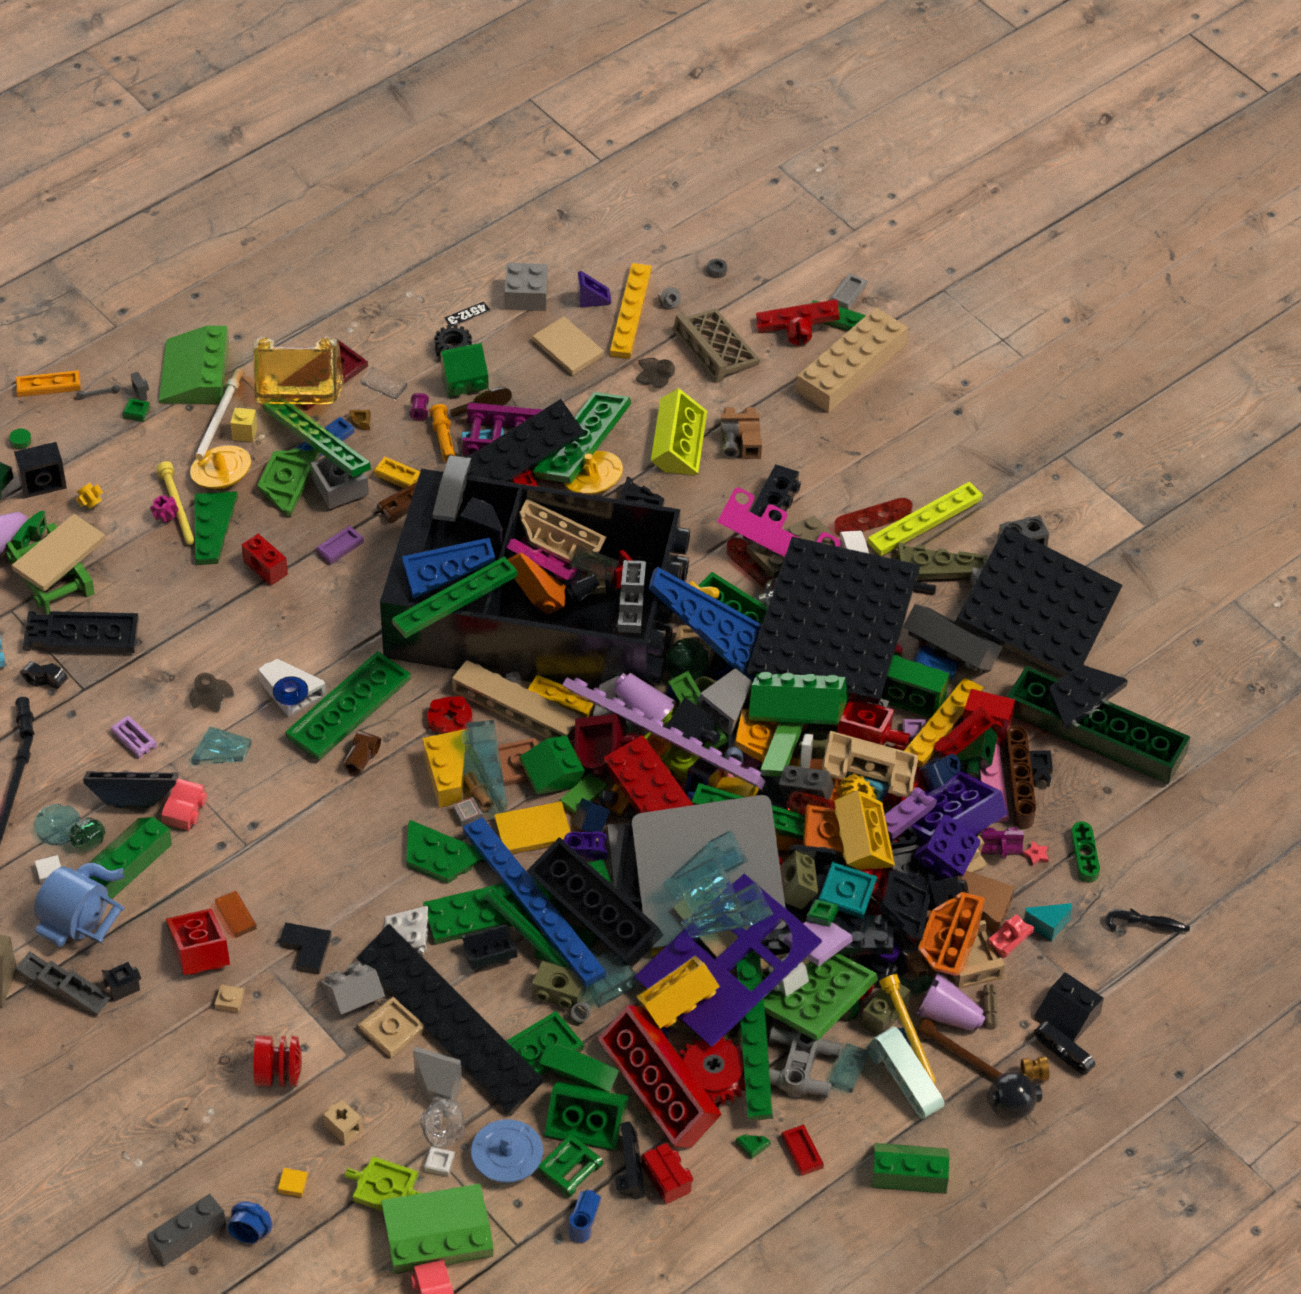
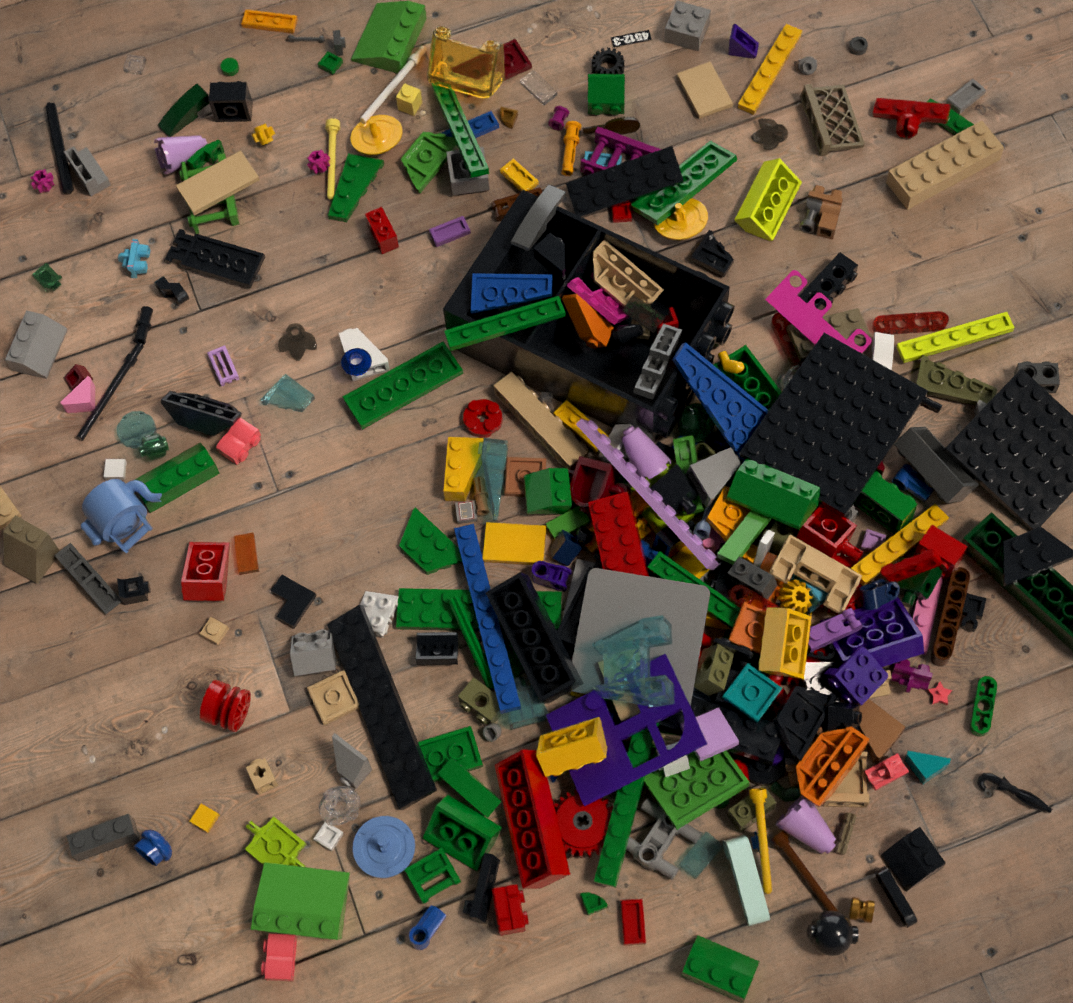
camera: 25 degrees right, 15 degrees up
(363, 747) = (401, 428): reddish brown piece -> none
(822, 913) = (721, 710): green tile -> none

